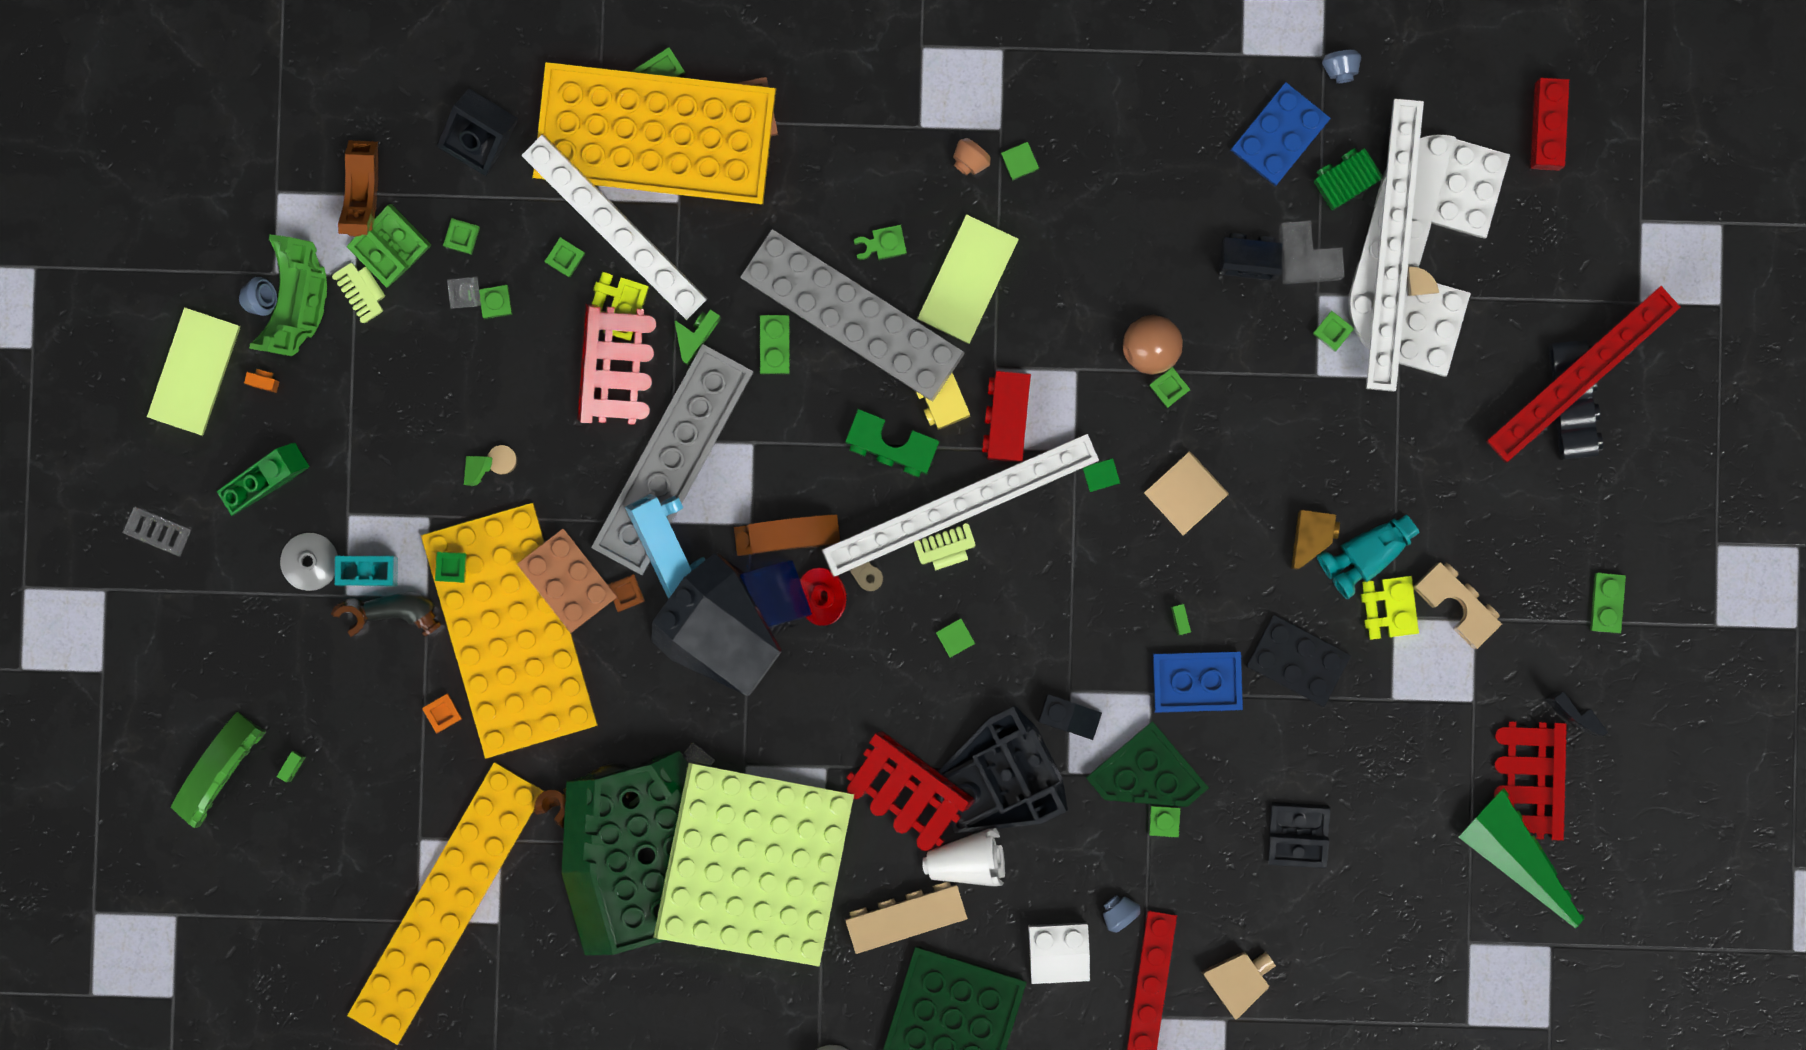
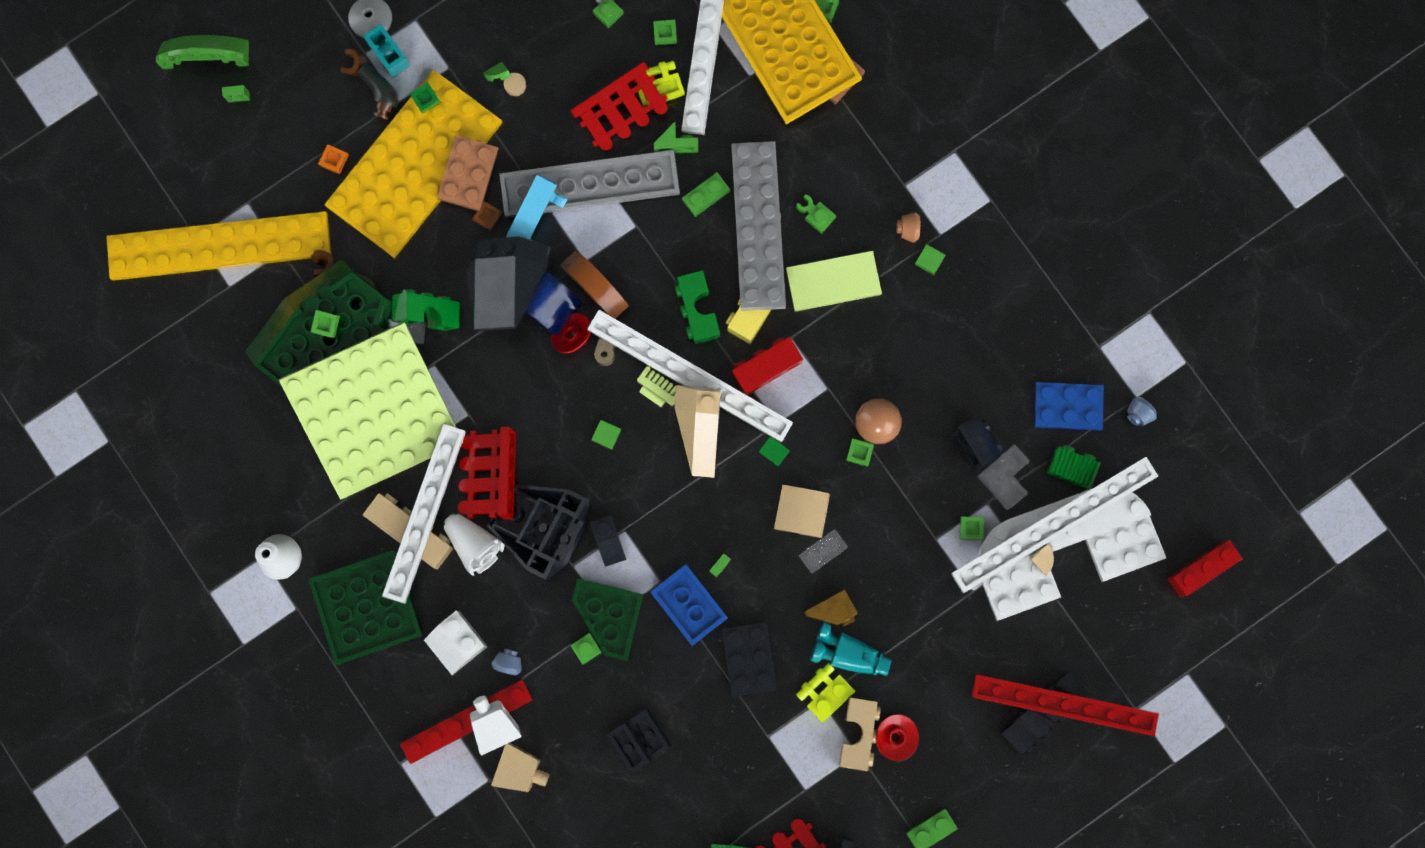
camera: 55 degrees right, 5 degrees down
(630, 847) = (325, 323): none -> bright green plate
(687, 732) = (440, 311): none -> green arch
(903, 887) = (424, 514): none -> white plate
(1017, 532) = (698, 421): none -> tan wedge
(1175, 974) = (492, 725): none -> white torso
(1244, 502) = (823, 551): none -> clear plate
(1498, 560) = (906, 739): none -> red dish

